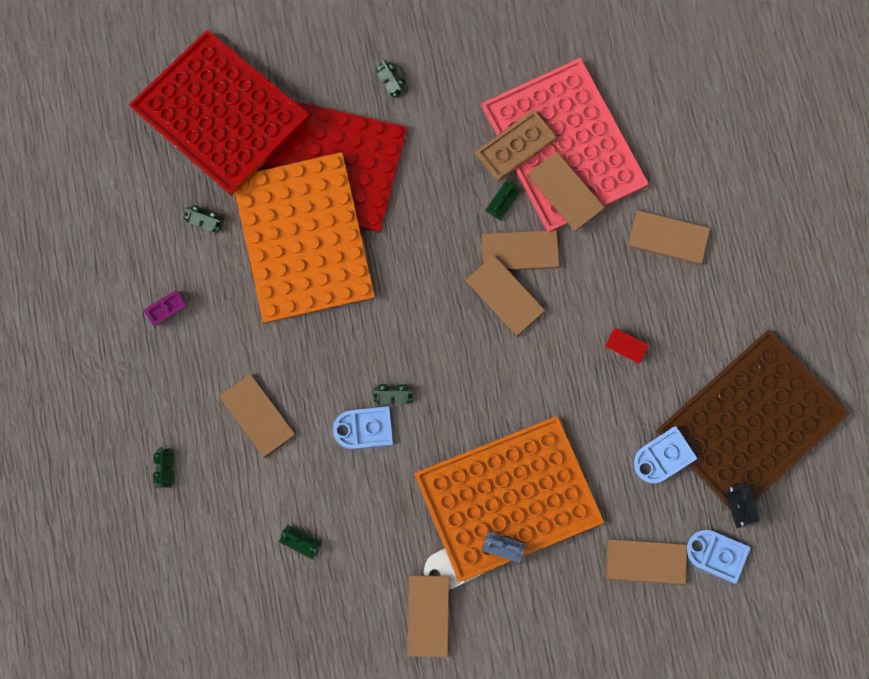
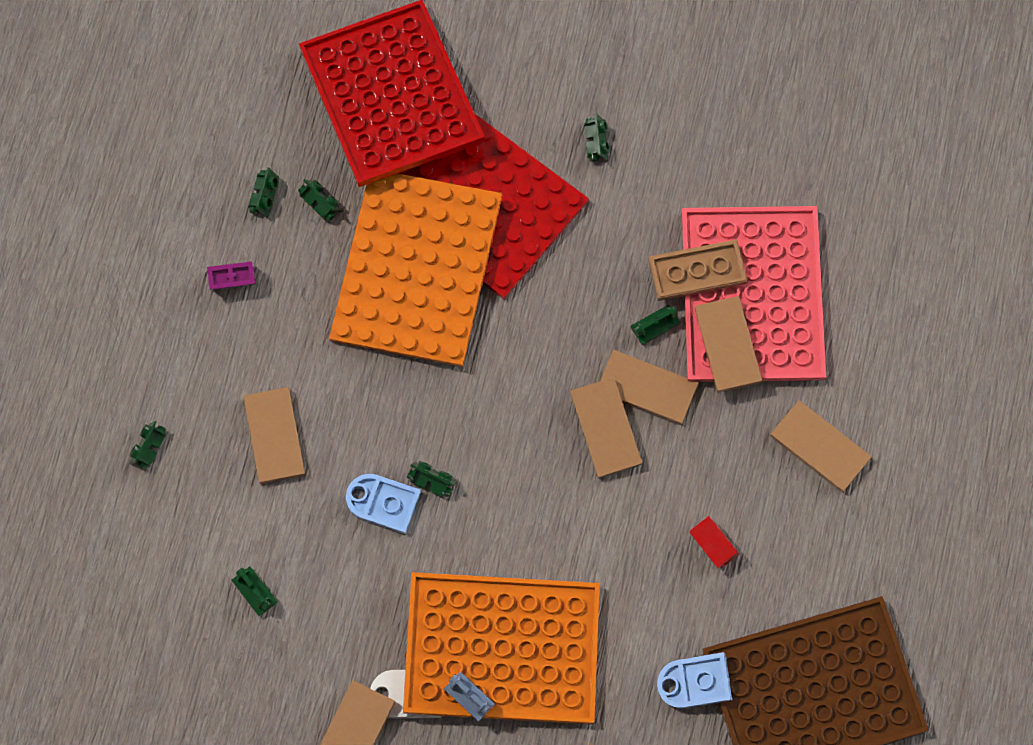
camera: 25 degrees right, 5 degrees down
(157, 224) = (266, 183): none -> dark green hinge

